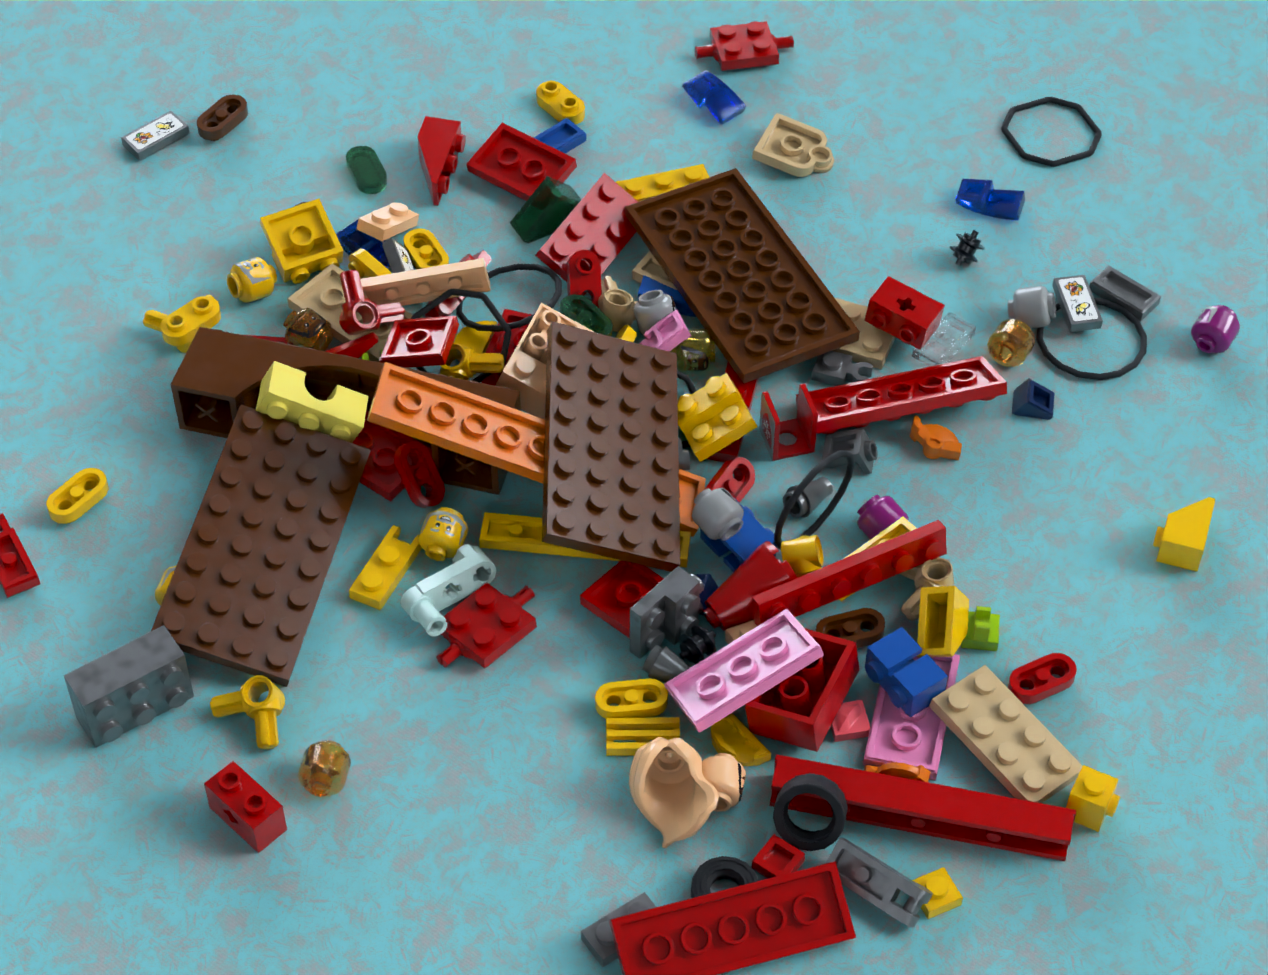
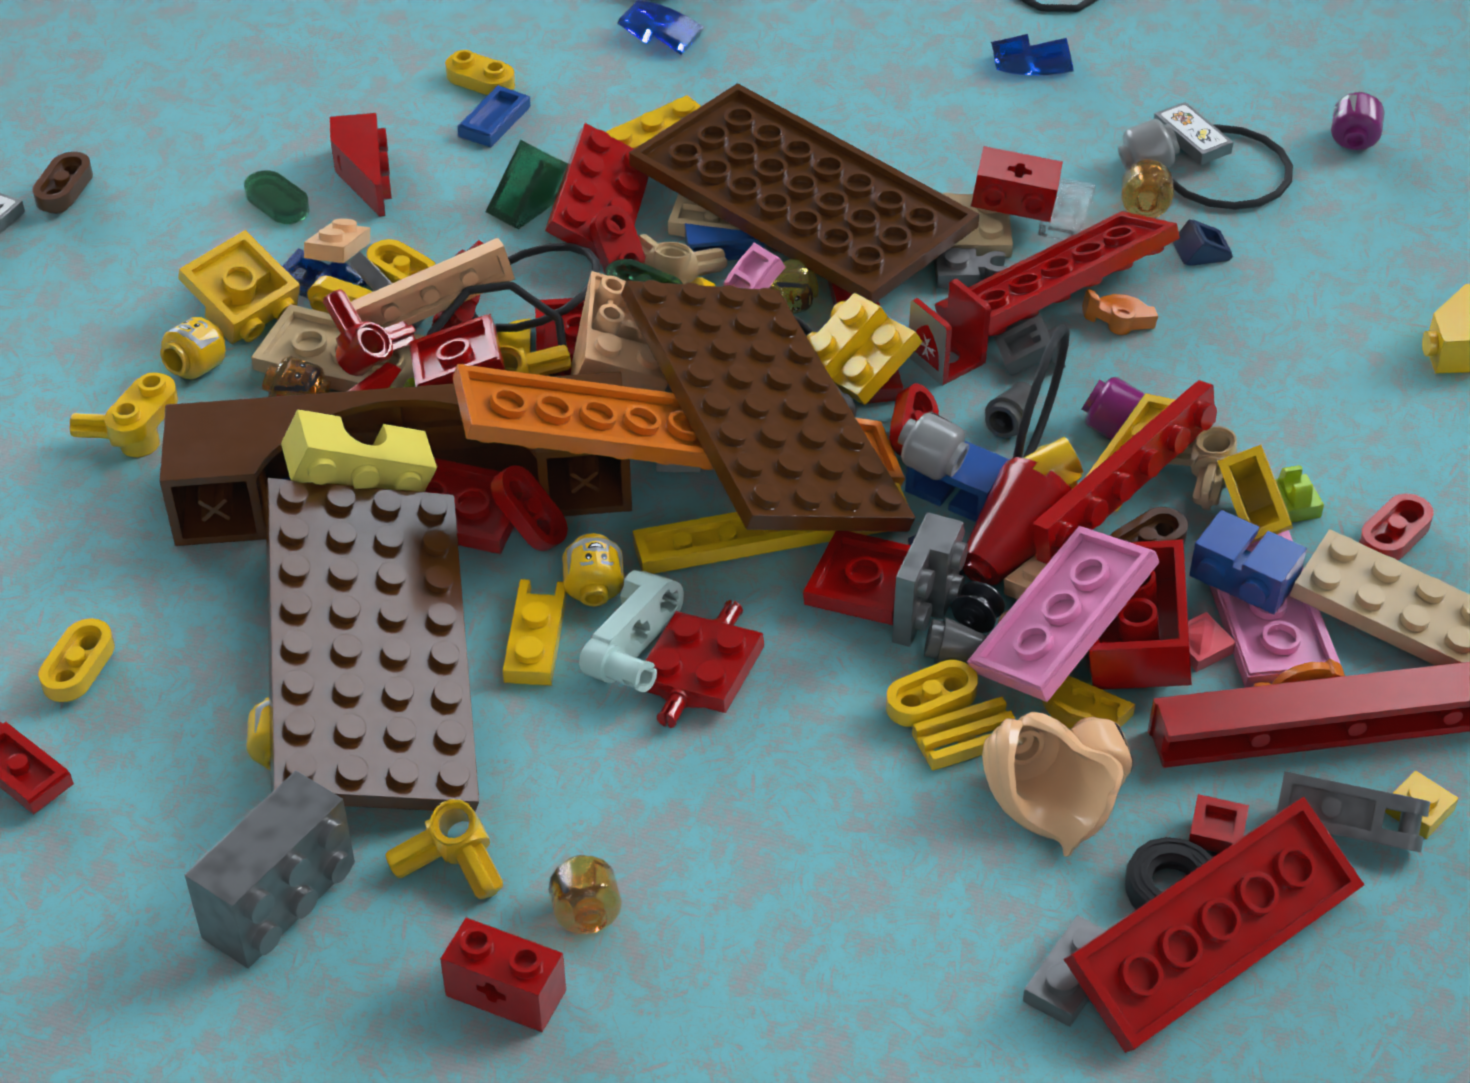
camera: 20 degrees left, 5 degrees down
(519, 162) = (466, 143): red plate -> none
(652, 308) = (720, 253): light grey head -> none
(793, 147) = (783, 55): tan plate -> none
(807, 839) = (1263, 773): black tyre -> none
(967, 247) = (1039, 107): black wheel -> none
(1125, 292) = (1235, 111): flat silver tile -> none

